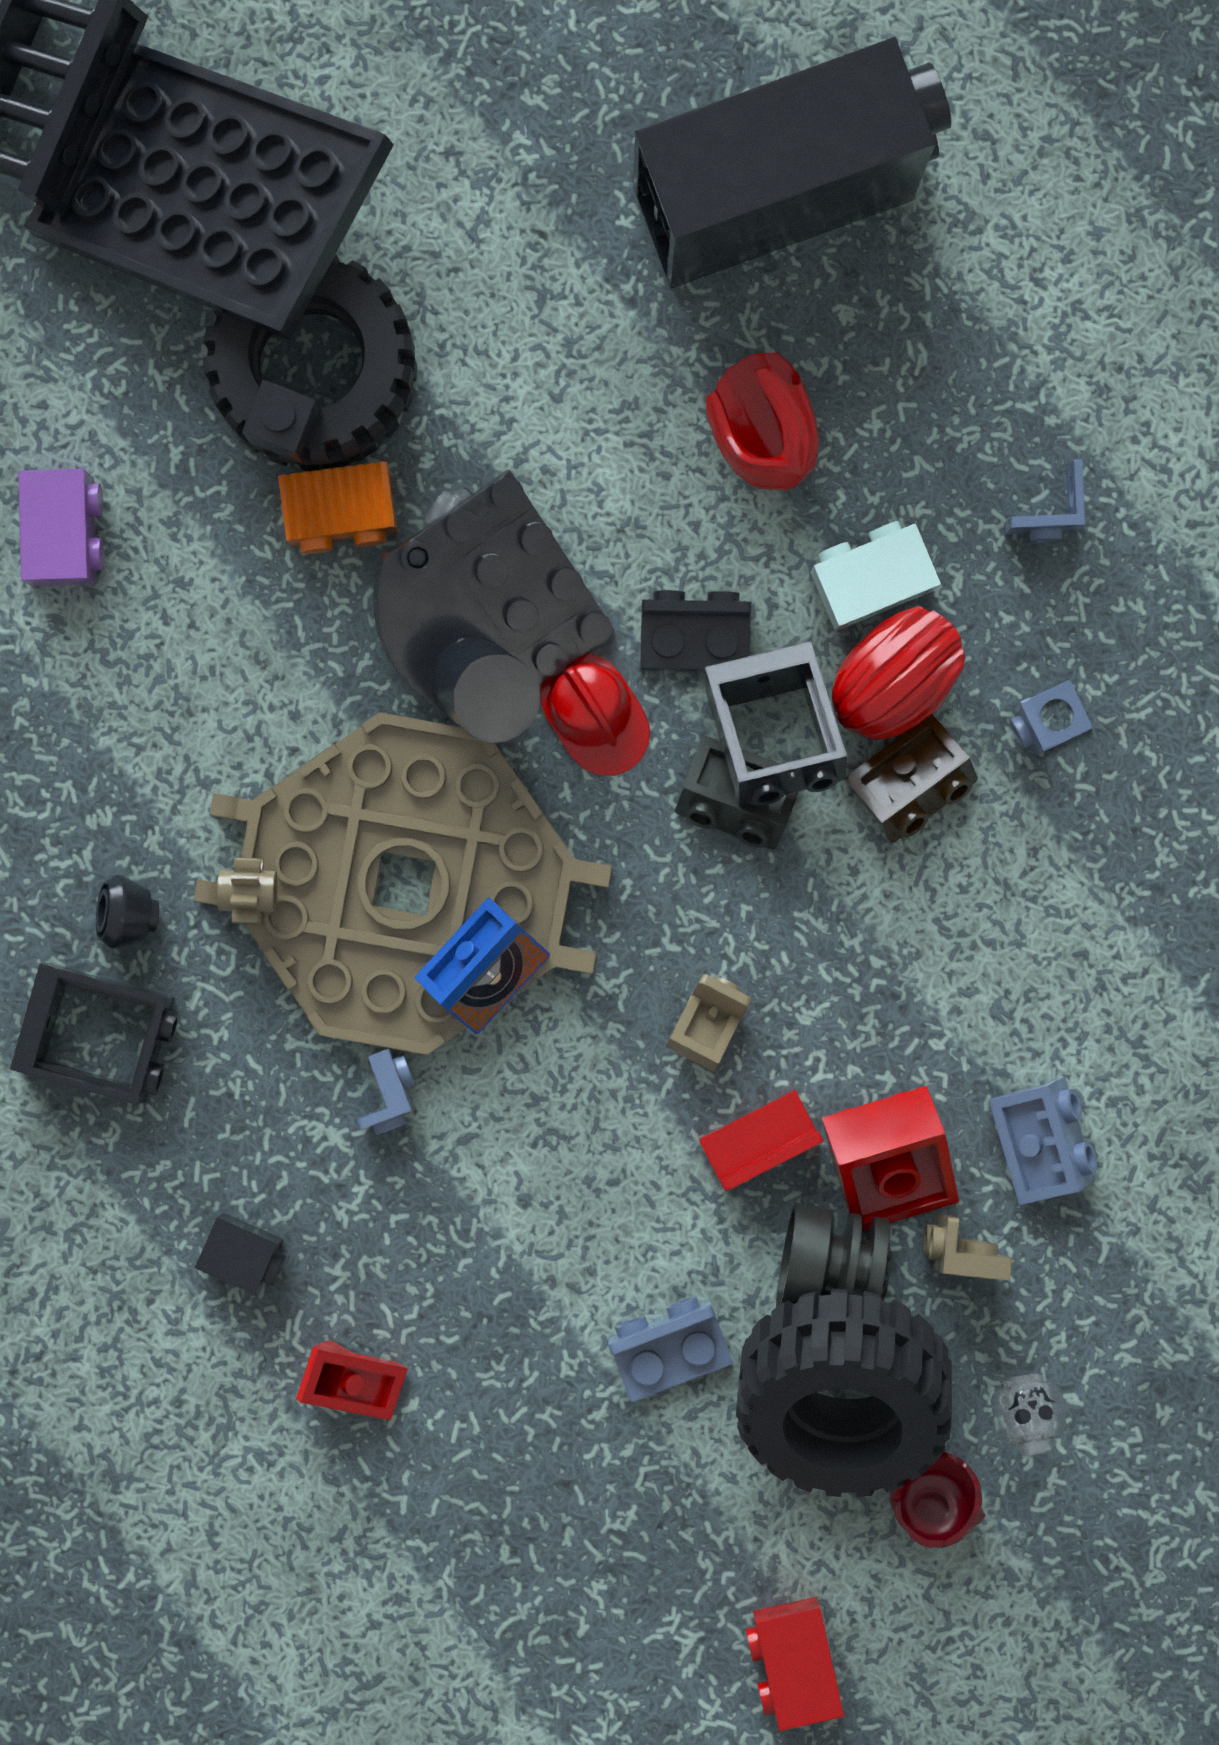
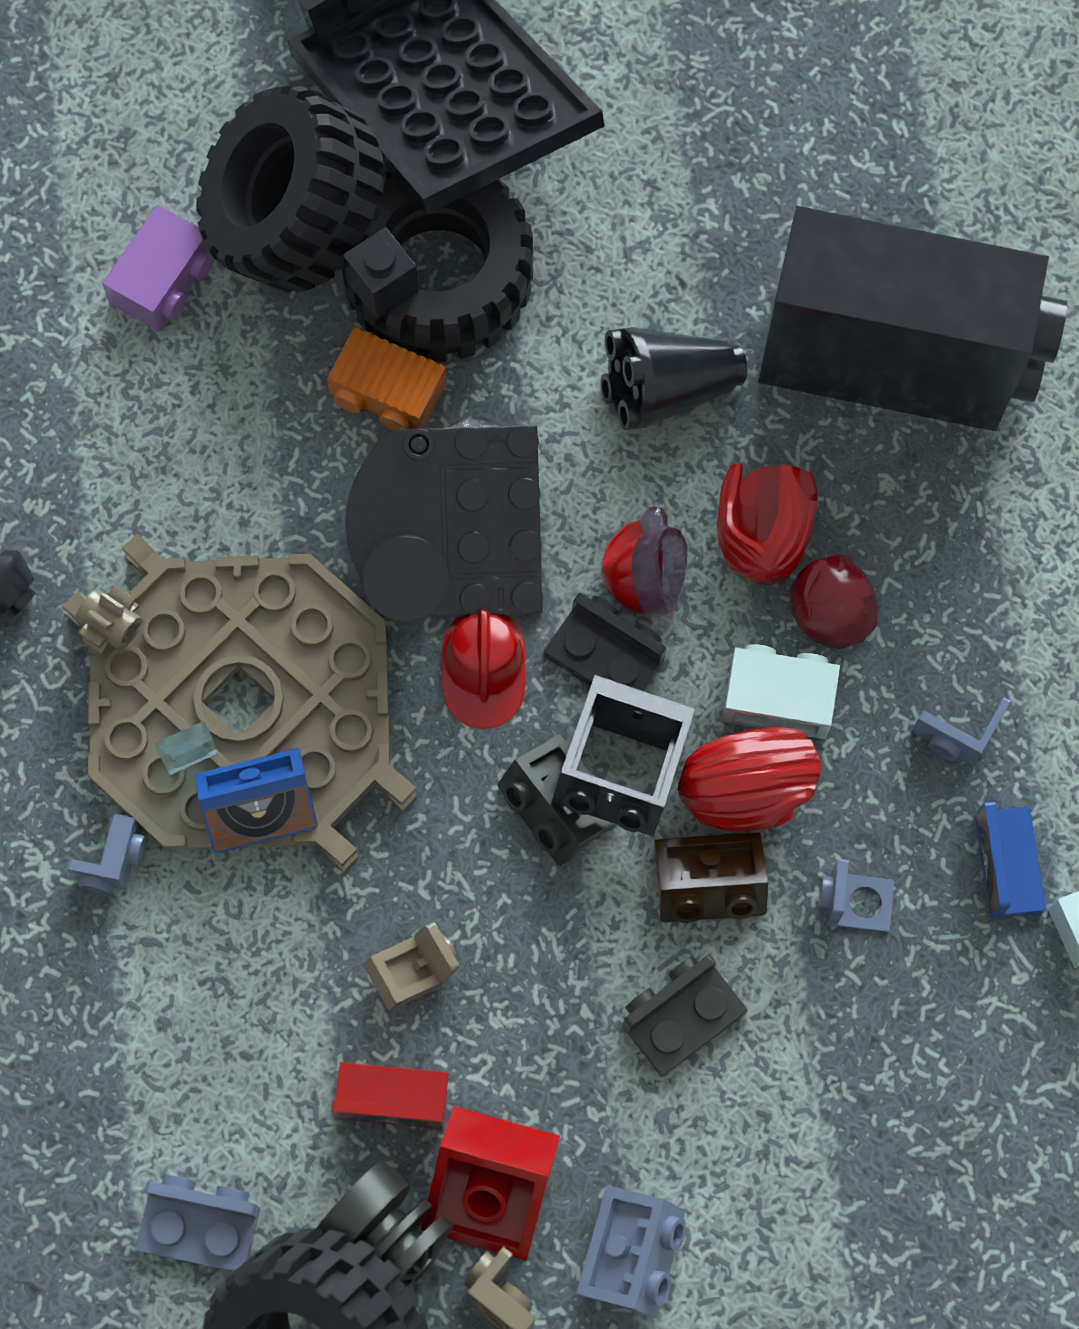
camera: 30 degrees right, 15 degrees down
(186, 376) = (289, 188): none -> black tyre
(393, 961) = (186, 748): none -> clear light blue tile
(588, 340) = (666, 373): none -> black cone
(683, 534) = (646, 564): none -> clear purple piece
(868, 460) = (834, 602): none -> dark red hair
(963, 913) = (683, 1014): none -> pearl dark grey bracket
(1160, 601) = (1009, 861): none -> blue panel

